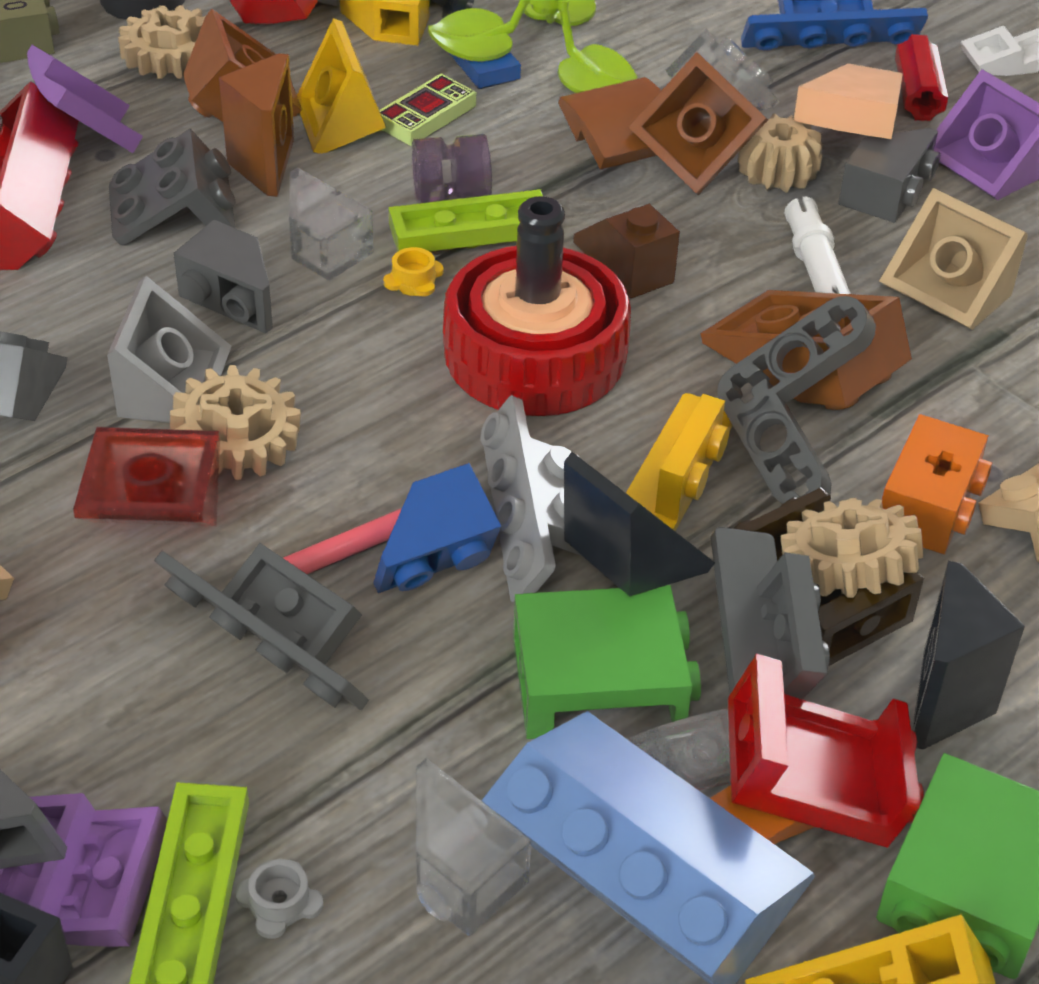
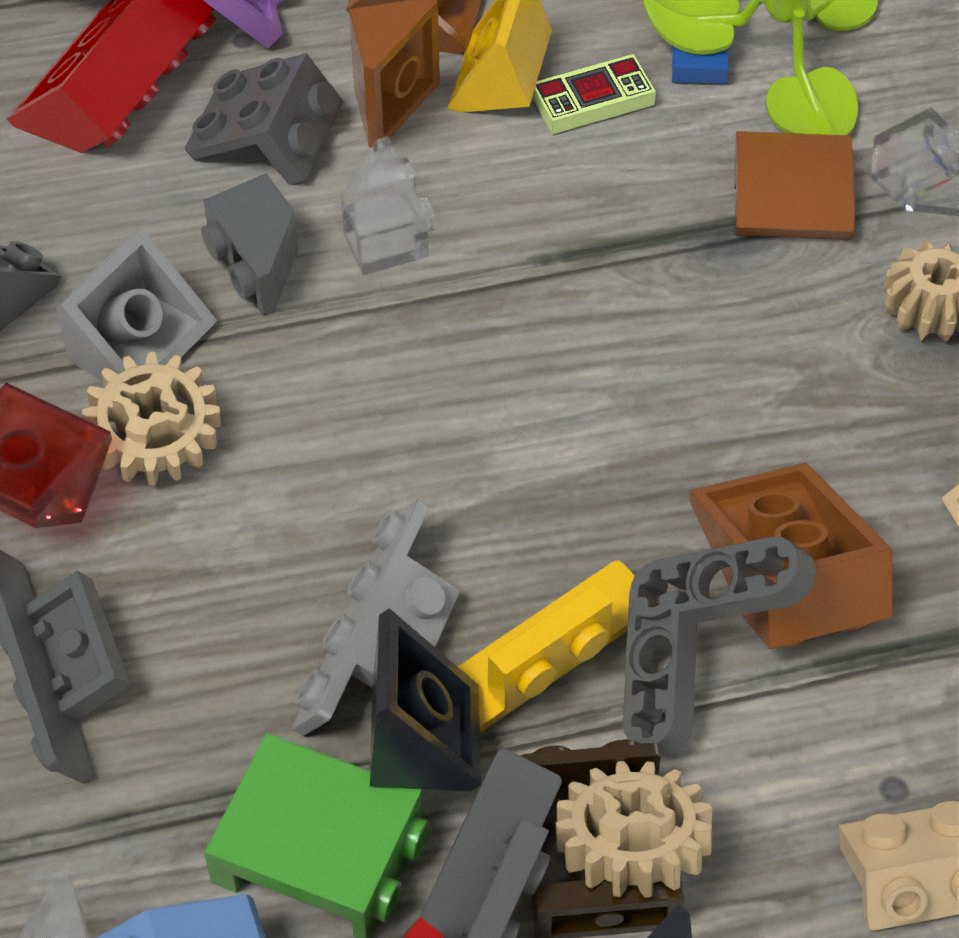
camera: 30 degrees right, 10 degrees up
(344, 544) = (200, 594): coral bar -> none
(413, 272) = (442, 301): yellow plate -> none
(439, 527) = (252, 618): blue slope -> none
(458, 221) = (538, 259): lime plate -> none
(469, 168) = (573, 193): clear purple wheel -> none
(537, 321) = (508, 421): red wheel -> none
(636, 247) = (683, 360): reddish brown slope -> none
(698, 123) = (856, 222): dark orange slope -> none
(814, 245) = (890, 427): white pin -> none
(936, 477) = (800, 783): orange brick -> none

